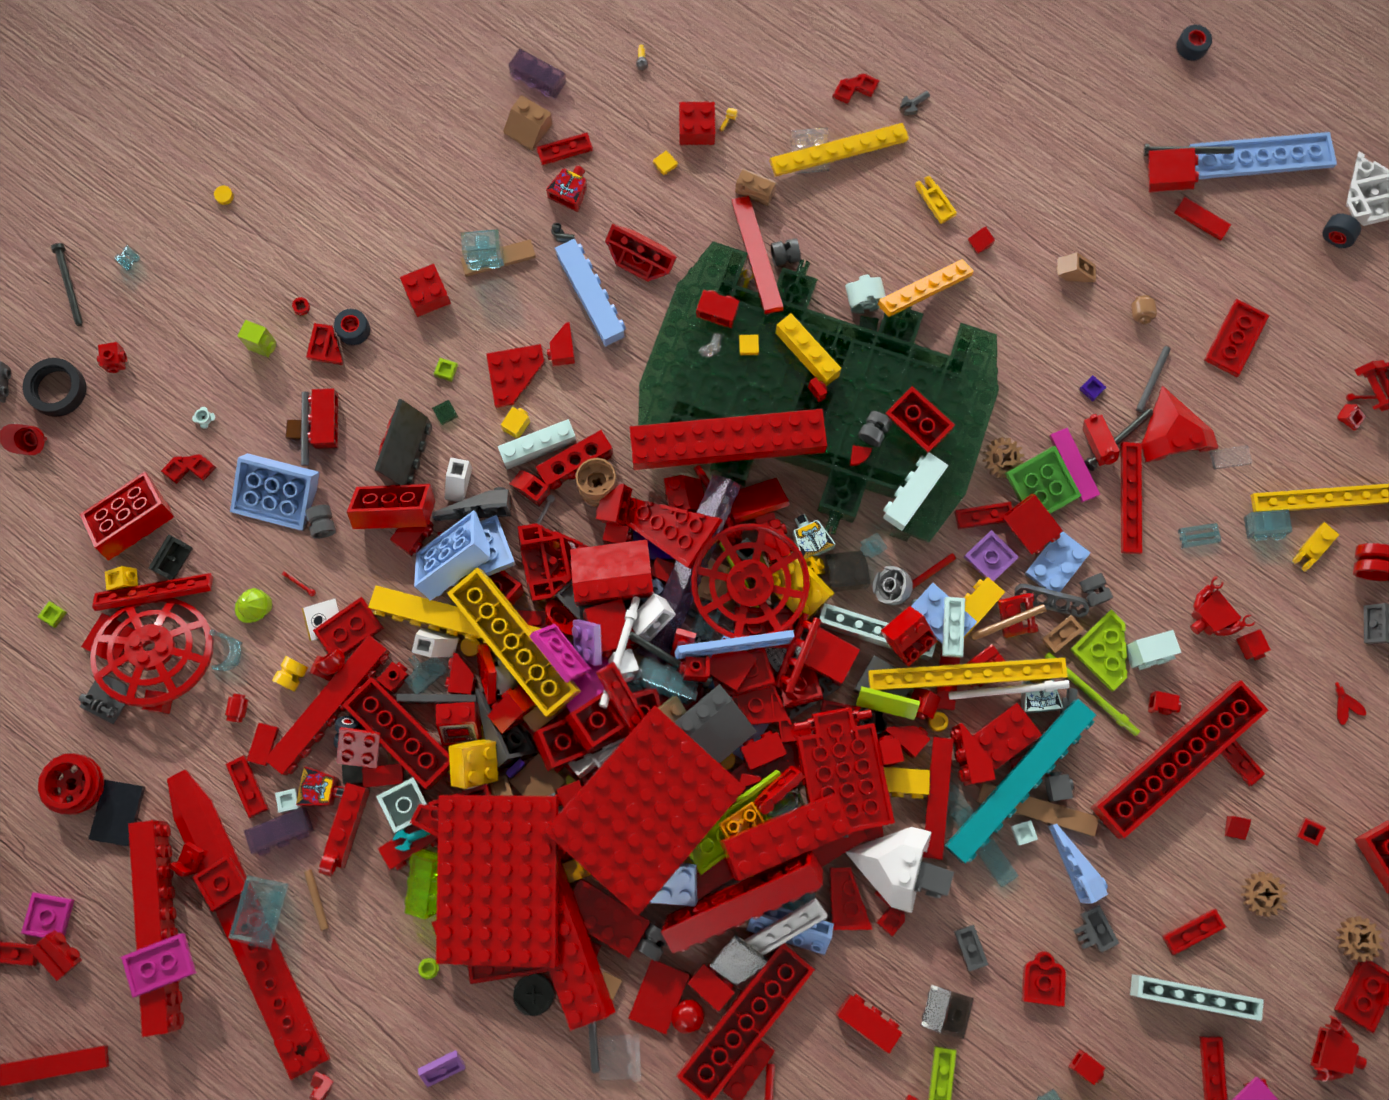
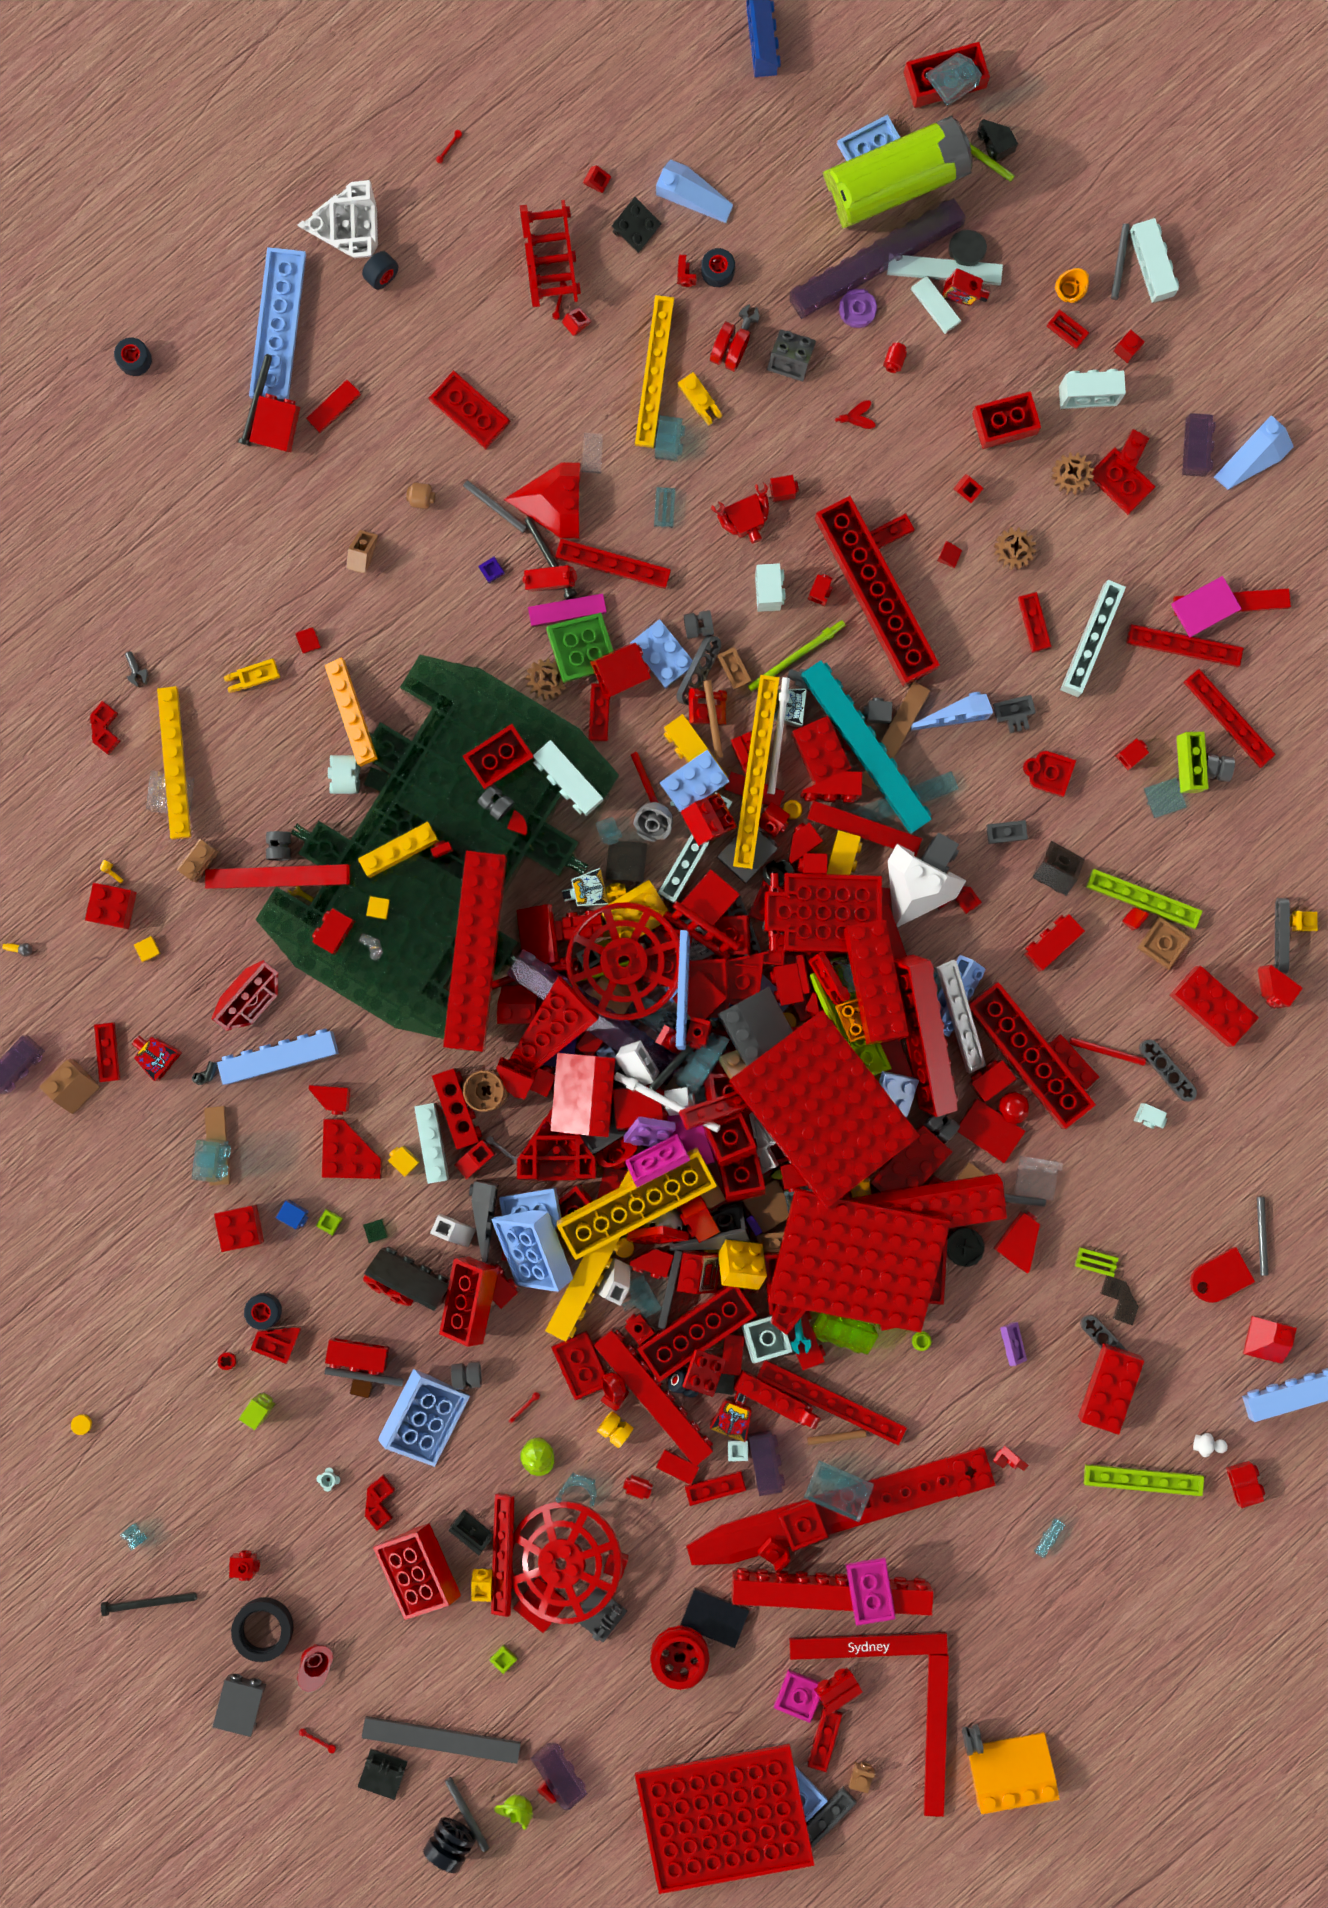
camera: 75 degrees left, 10 degrees up
(107, 979) = (868, 1645): none -> red tile
(318, 614) = (559, 1392): white sticker -> none
(350, 888) = (831, 1402): none -> red plate
(446, 334) = (293, 1214): none -> blue brick
(550, 1052) = (1020, 1241): none -> red slope
(738, 962) = (977, 1050): clear smoke tile -> none
(778, 764) = (804, 974): none -> red tile
(846, 903) = (942, 937): red wing -> none
(888, 703) = (767, 855): lime tile -> none
(953, 627) = (708, 774): light aqua tile -> none
(991, 556) = (643, 717): medium lavender plate -> none
(1024, 832) = (913, 755): light aqua plate -> none
(1105, 650) = (758, 631): lime plate -> none
(1335, 1052) = (1166, 526): red torso -> none

